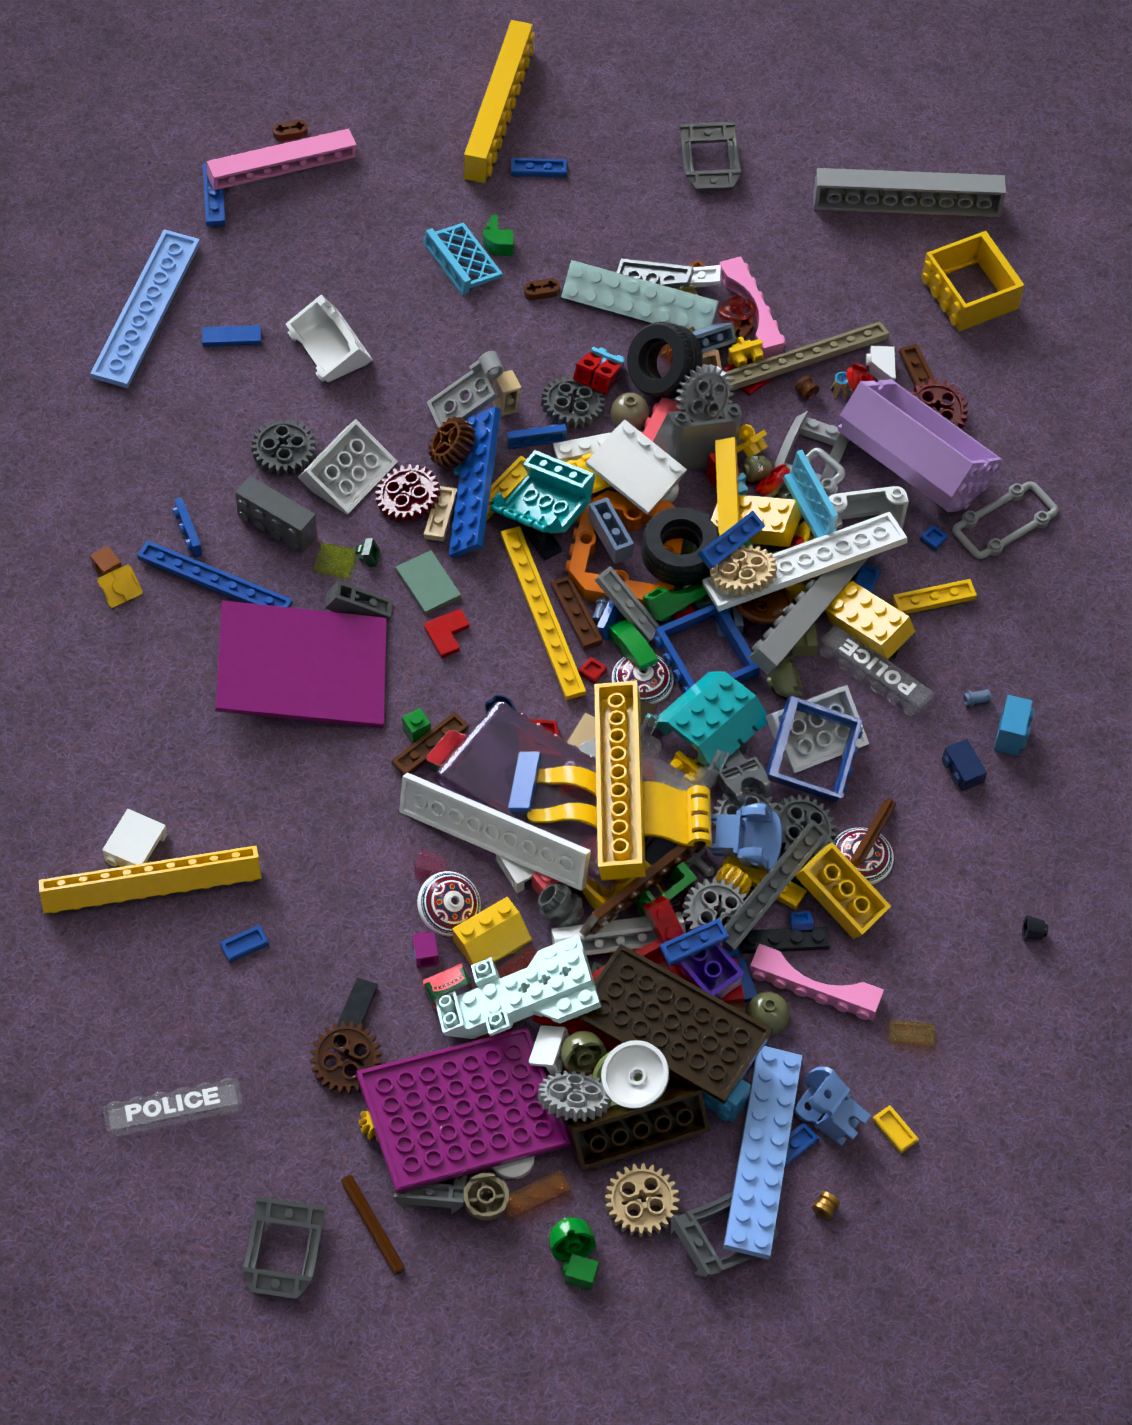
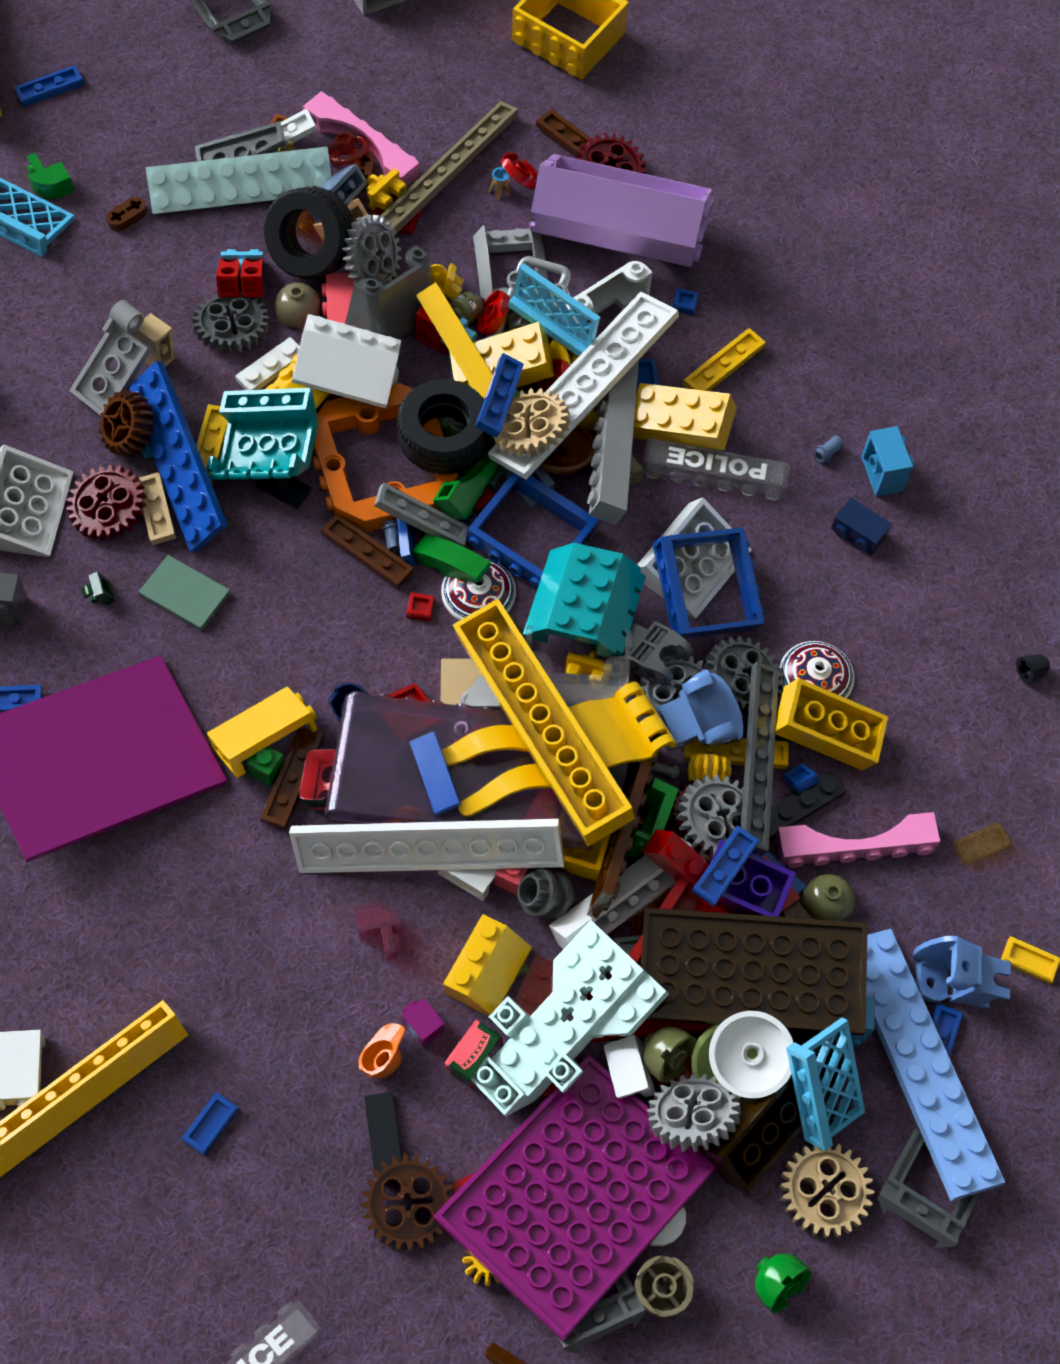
camera: 30 degrees left, 5 degrees up
(335, 560) = (64, 616): clear neon green piece -> none
(357, 601) = (113, 653): dark grey slope -> none
(384, 957) = (381, 1049): none -> orange piece
(426, 698) = (260, 727): none -> yellow panel
(436, 906) = (406, 958): dish -> none
(442, 630) = (231, 642): red tile -> none
(536, 436) = (212, 376): blue plate -> none
(537, 1194) = (711, 1244): clear orange plate -> none
(543, 613) = (331, 569): yellow plate -> none
(580, 1271) = (812, 1314): green brick -> none
(611, 530) = (359, 442): sand blue brick -> none
(661, 1123) = (811, 1092): none -> medium azure fence
(785, 679) = (633, 524): olive cylinder -> none
(807, 388) = (467, 201): reddish brown wheel -> none
(826, 1205) = (1017, 1087): pearl gold wheel -> none
(873, 832) = (820, 645): reddish brown axle -> none
(881, 362) = (529, 143): white slope -> none
(996, 545) = (751, 282): light grey bar -> none

